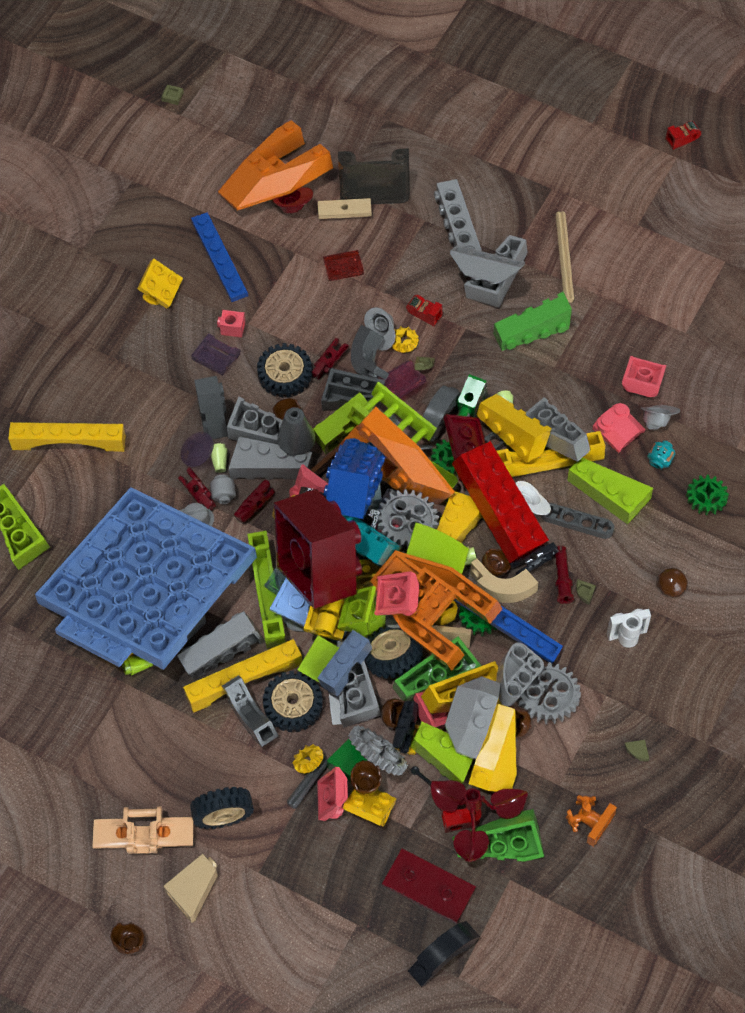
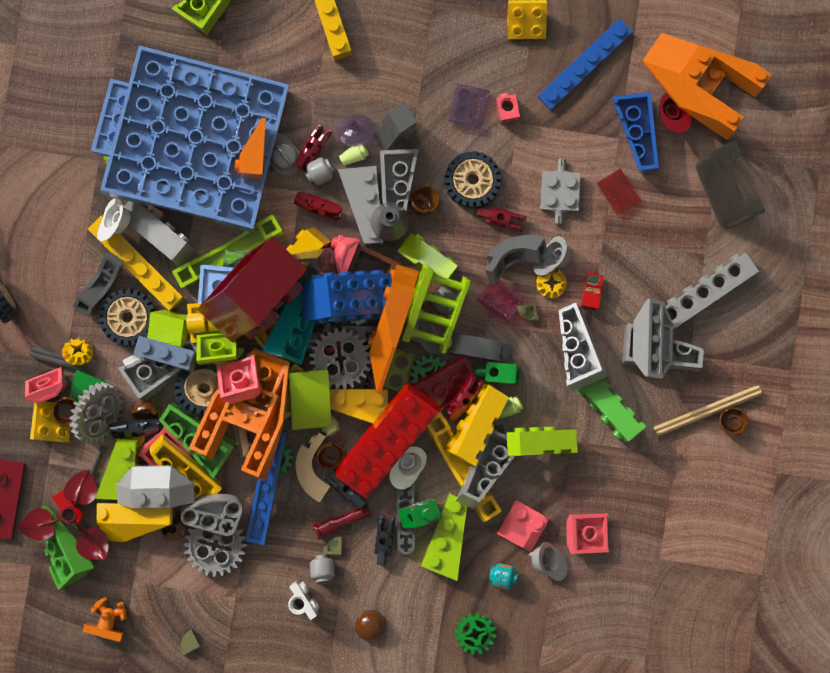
camera: 65 degrees right, 25 degrees up
(186, 526) = (251, 157): none -> orange slope
(192, 671) = (114, 221): none -> white piece
(296, 229) = (638, 125): none -> blue wedge
(324, 308) = (560, 191): none -> light grey plate
(344, 208) = (682, 157): tan tile -> none
(344, 385) = (468, 252): dark grey wedge -> none
(474, 325) = (581, 354): none -> light grey wedge
(482, 427) = (464, 397): none -> dark red hinge
(547, 378) = (541, 442): none -> lime wedge
(578, 489) = (421, 512): none -> green torso
(581, 238) = (733, 421): none -> reddish brown hair
(601, 549) = (382, 549): none -> black hinge
(604, 604) = (322, 569): none -> light grey head

